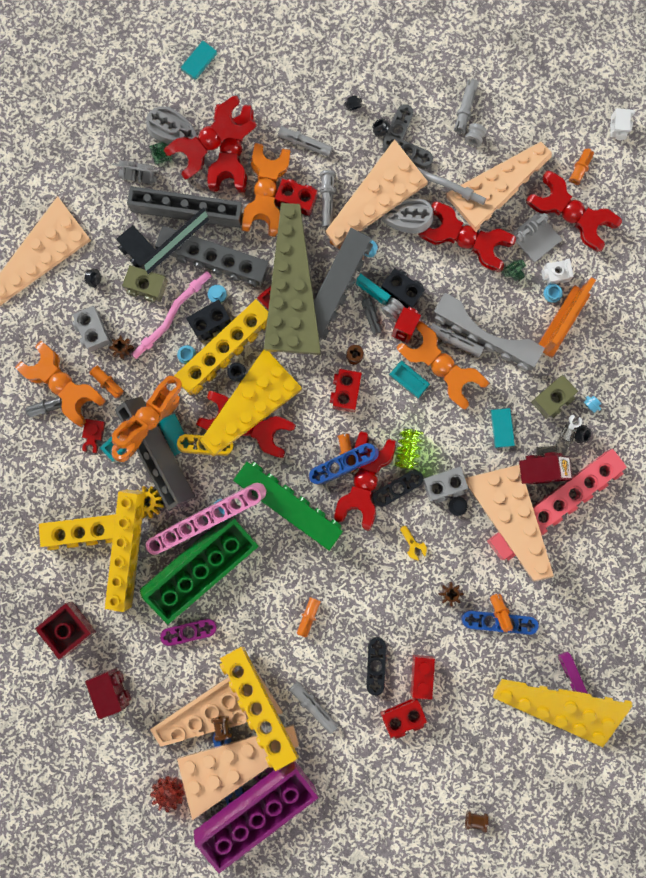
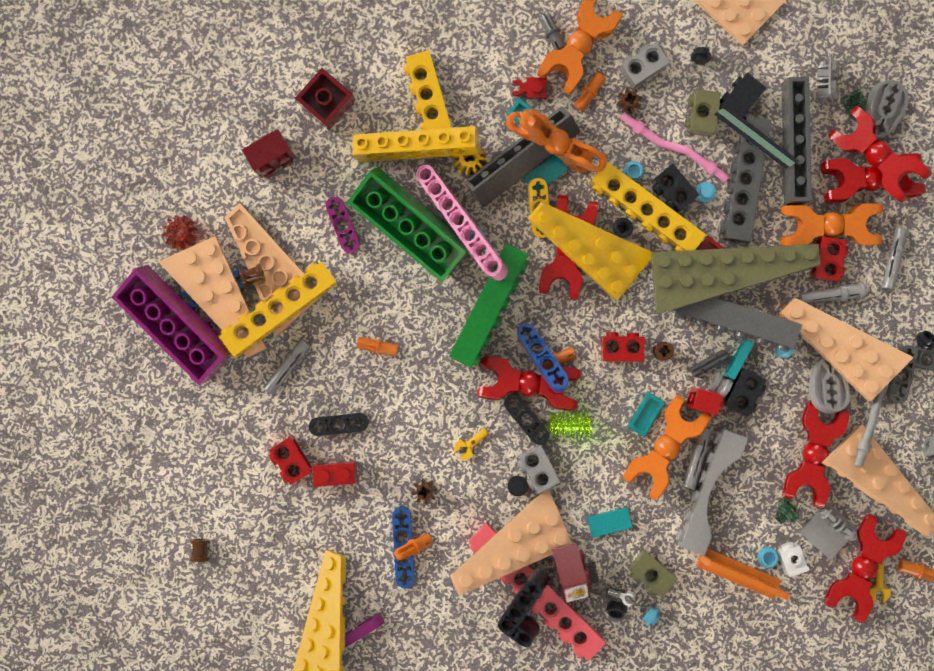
camera: 85 degrees right, 5 degrees up
(582, 527) = (515, 621): none -> black beam
(591, 202) = (879, 585): none -> yellow bar

